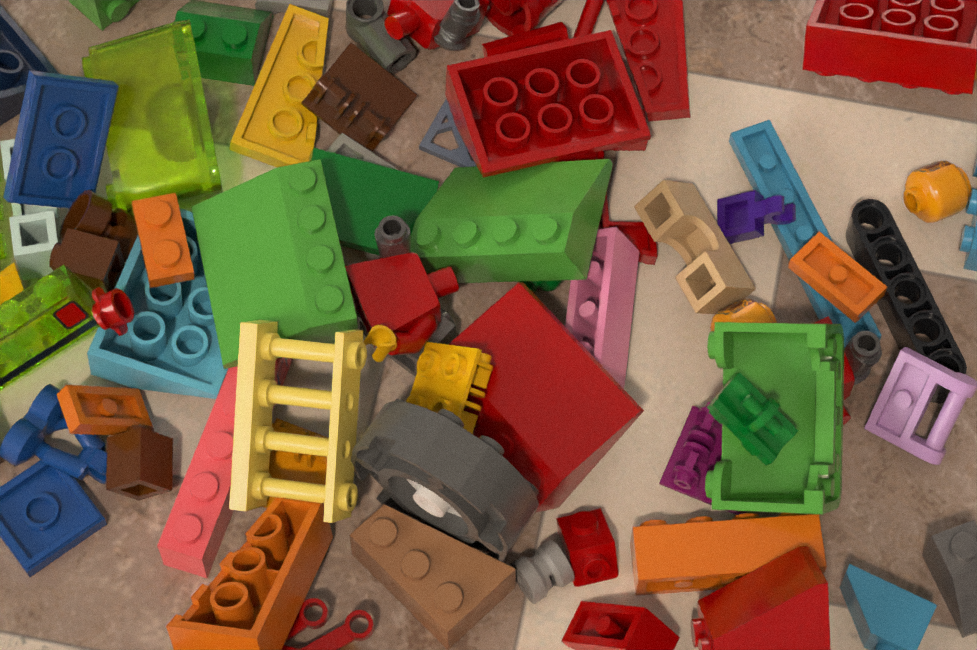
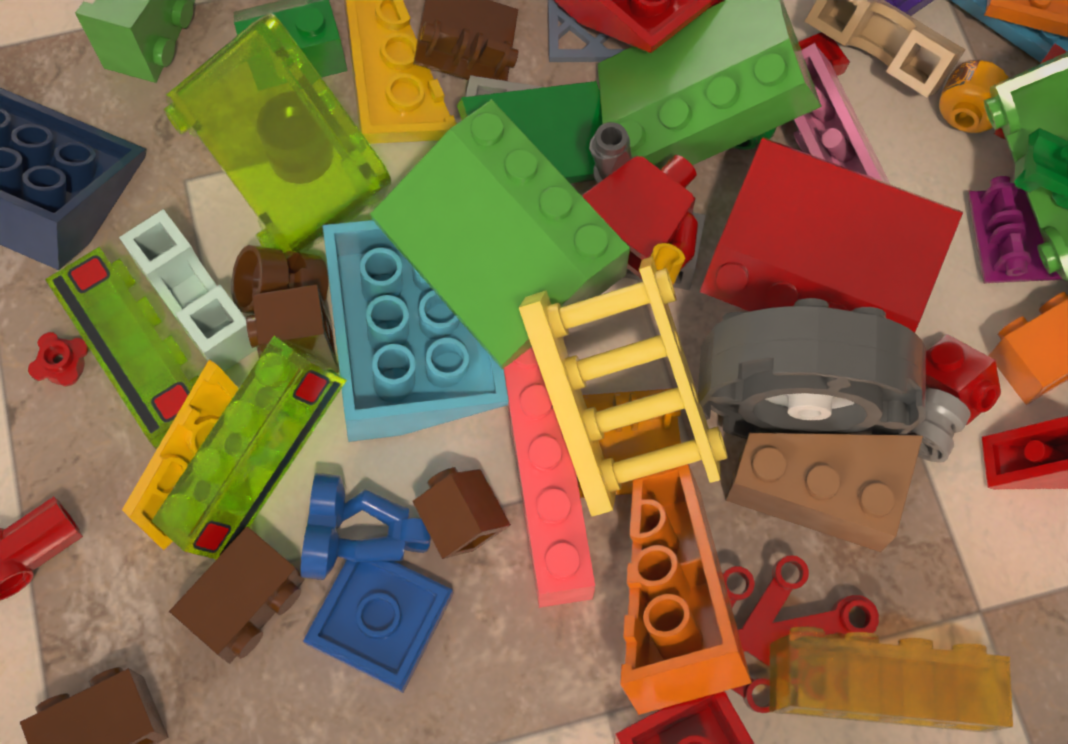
camera: 25 degrees left, 5 degrees up
(59, 139) = (188, 203): blue tile -> none
(102, 409) = (390, 474): orange plate -> none
(112, 310) = (351, 361): red plate -> none
(163, 240) = (360, 262): orange plate -> none
(446, 380) = (746, 272): yellow hinge -> none

